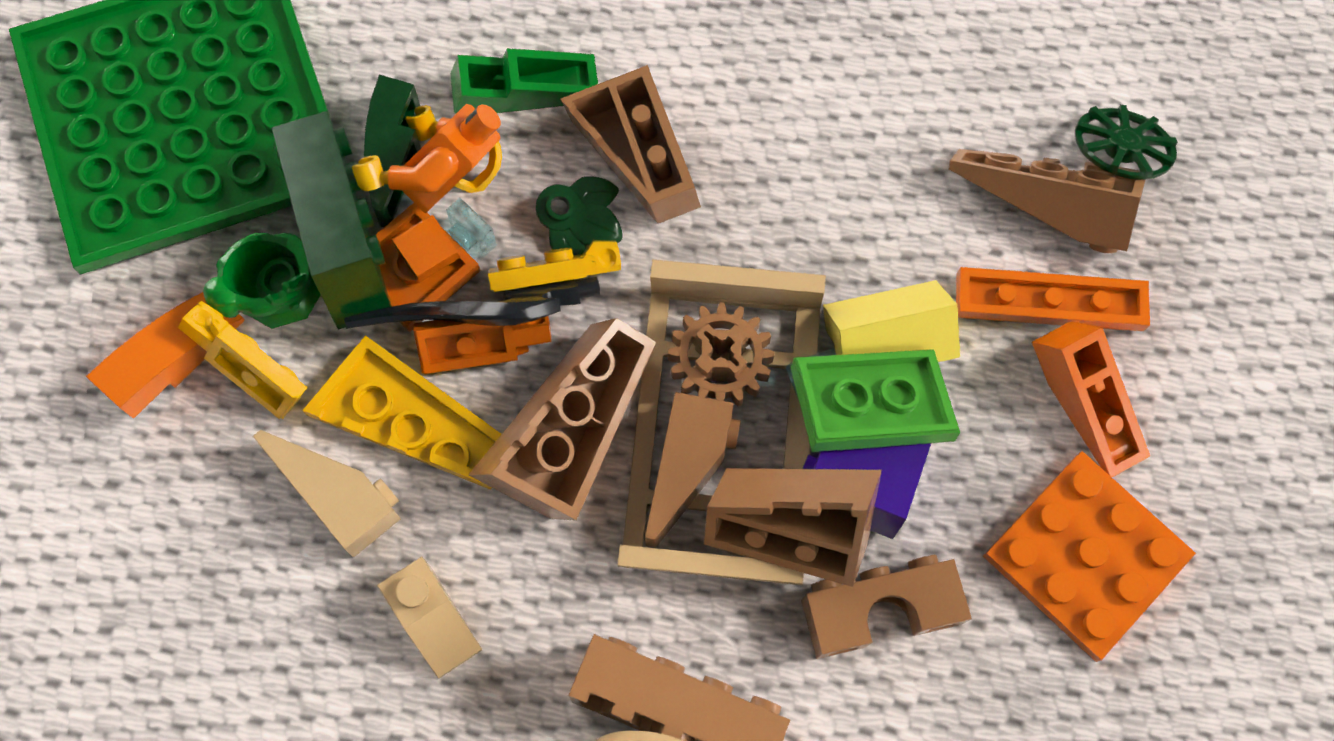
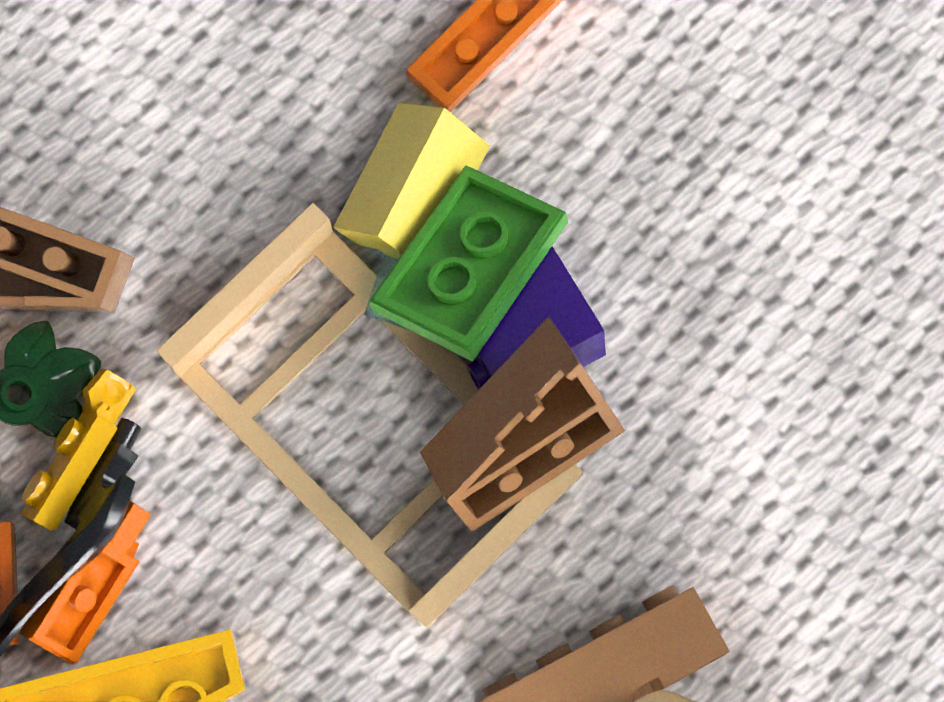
camera: 50 degrees left, 5 degrees up
(567, 426) = (249, 561): medium nougat wedge -> none
(691, 455) = (372, 466): medium nougat slope -> none
(734, 341) = (331, 365): medium nougat gear -> none
(926, 593) = (681, 368): medium nougat arch -> none
(1089, 556) = (761, 193): orange plate -> none
(1092, 394) = (623, 59): orange slope -> none

